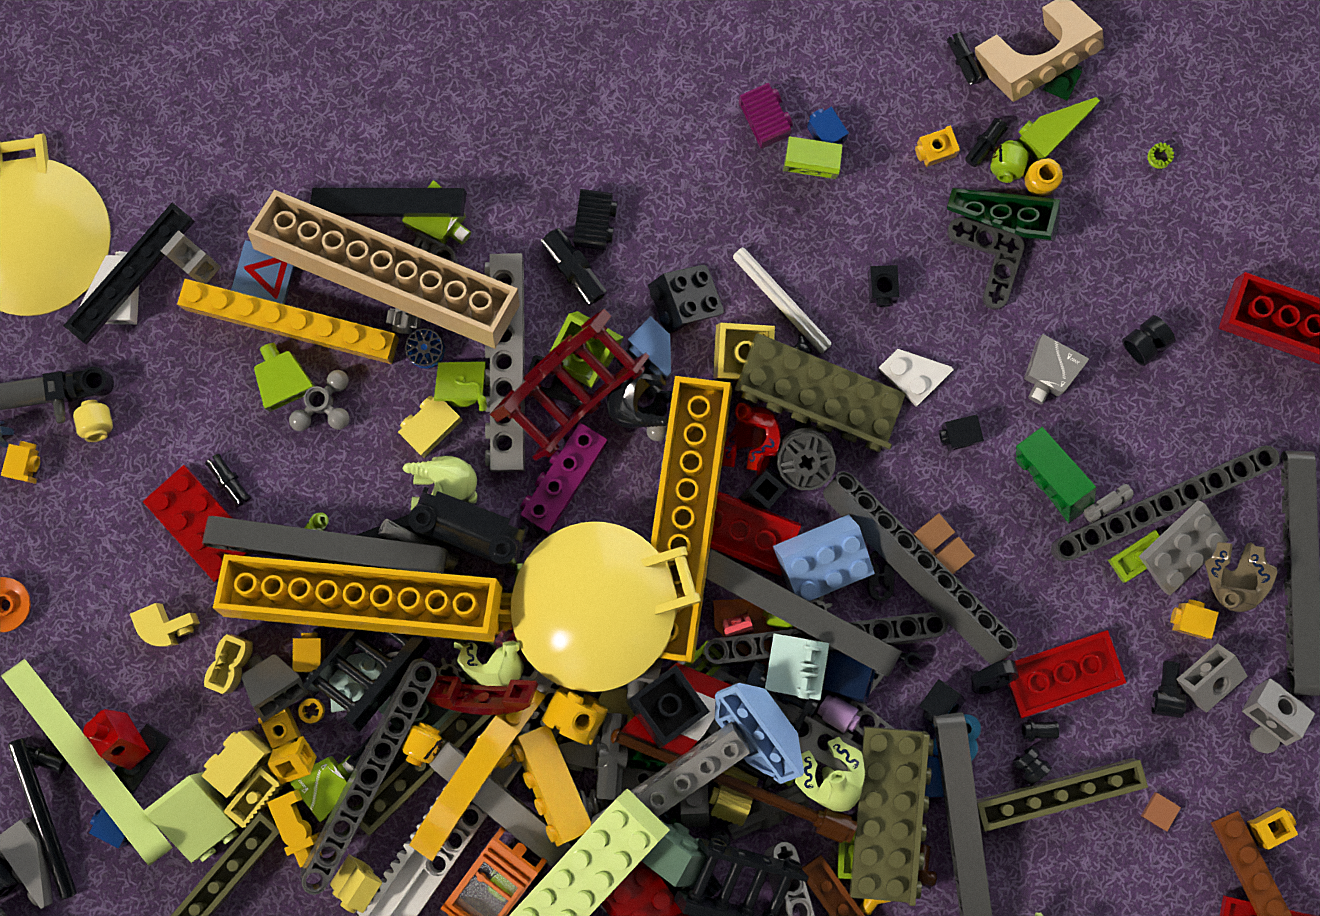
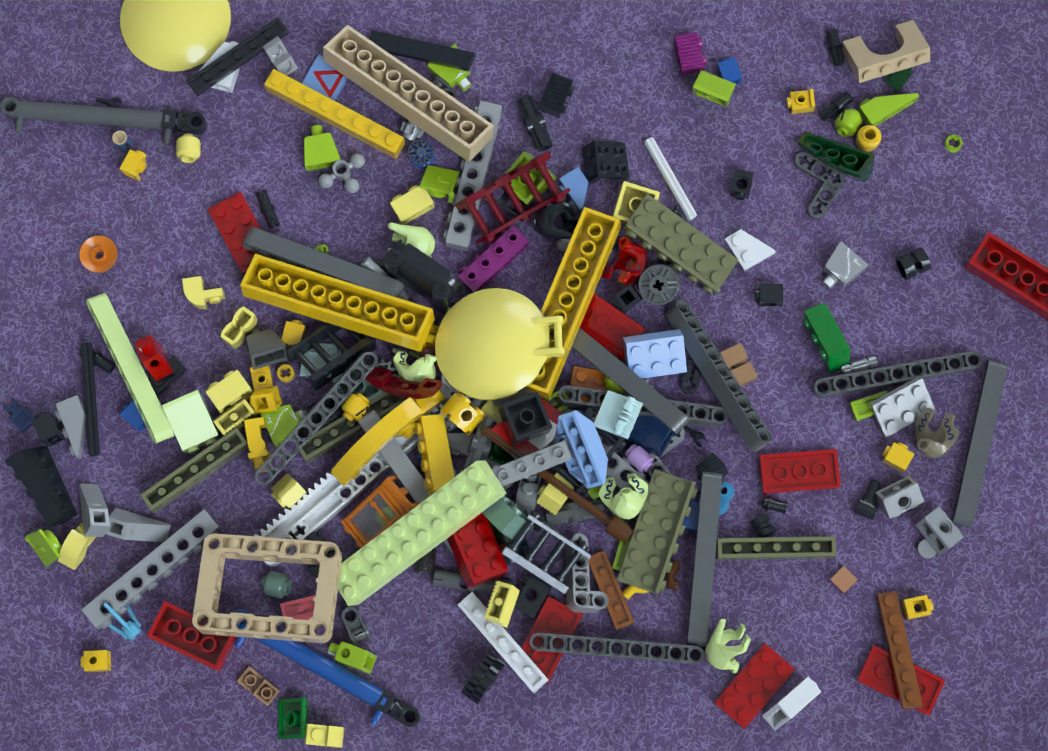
camera: 15 degrees right, 5 degrees down
(738, 625) = (589, 382): coral slope -> none
(994, 676) = (751, 460): black beam -> none

